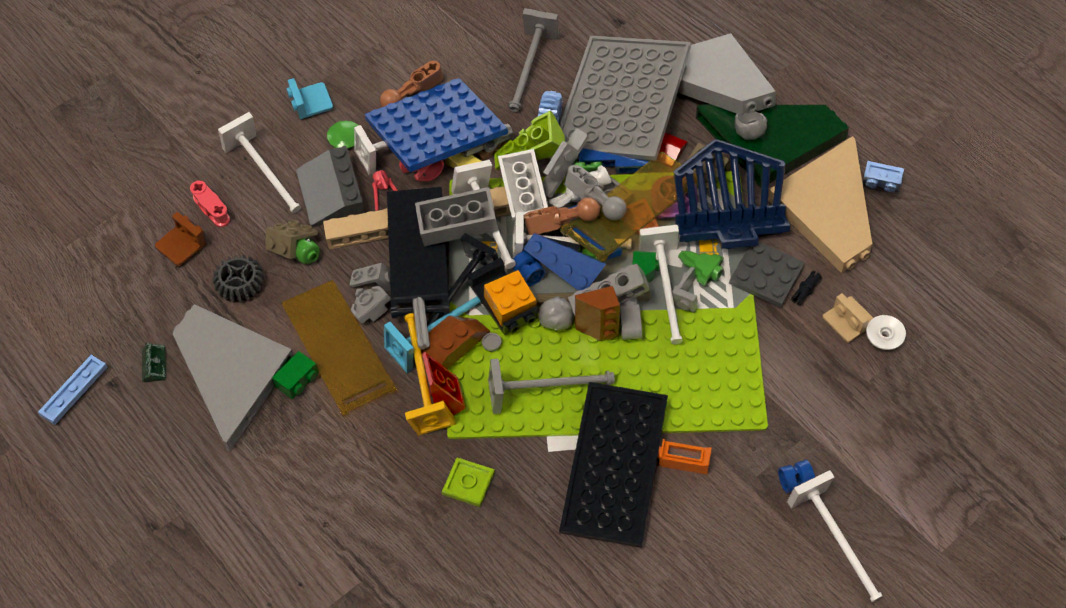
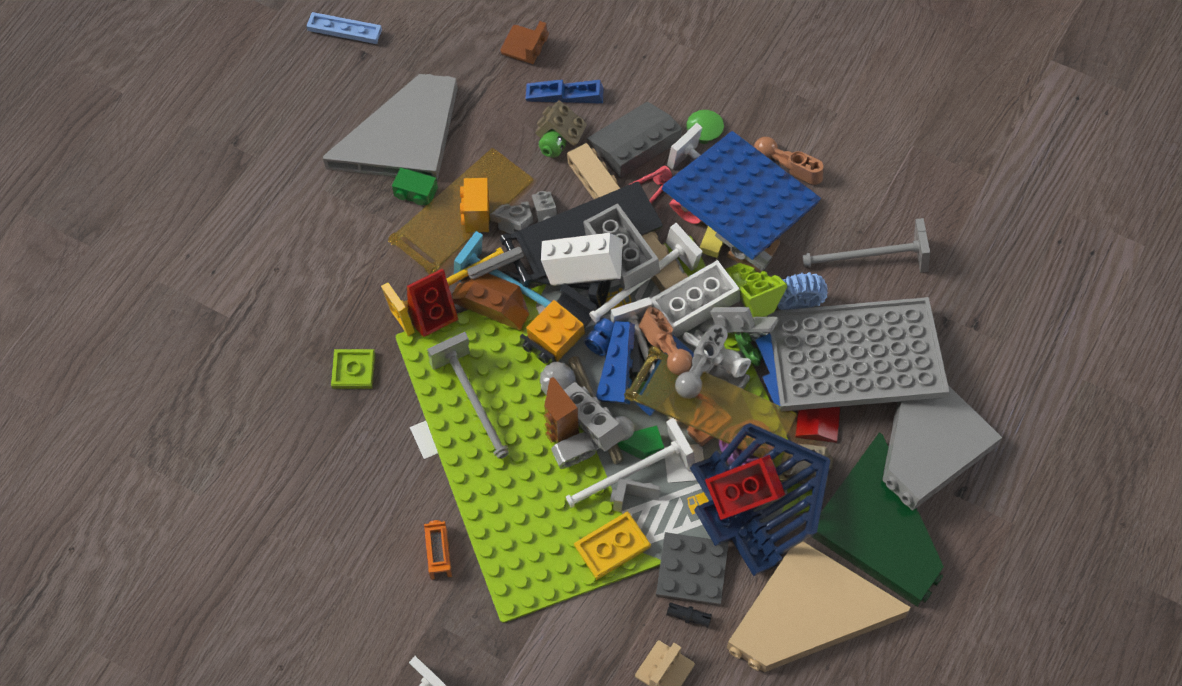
camera: 70 degrees right, 5 degrees up
(153, 363) = (393, 76): clear green slope -> none
(210, 203) = (575, 48): coral piece -> none
(238, 273) = (499, 95): dark grey gear -> none
(239, 133) = (659, 36): white tile -> none
(252, 227) = (570, 93): none -> blue slope
(310, 99) = (732, 78): medium azure bracket -> none
(348, 323) = (475, 205): none -> light orange brick
(460, 246) = (582, 259): none -> white slope
(491, 342) = (509, 335): light grey piece -> none
(614, 465) = (408, 487): black plate -> none
(705, 265) = (672, 501): bright green rock -> none
(722, 199) = (745, 487): none -> red slope
(727, 321) = (612, 545): none -> yellow tile
(750, 125) = (867, 490): light grey hair -> none
(794, 476) = (447, 662): blue wheel -> none
(883, 176) = (868, 656): light blue bracket -> none

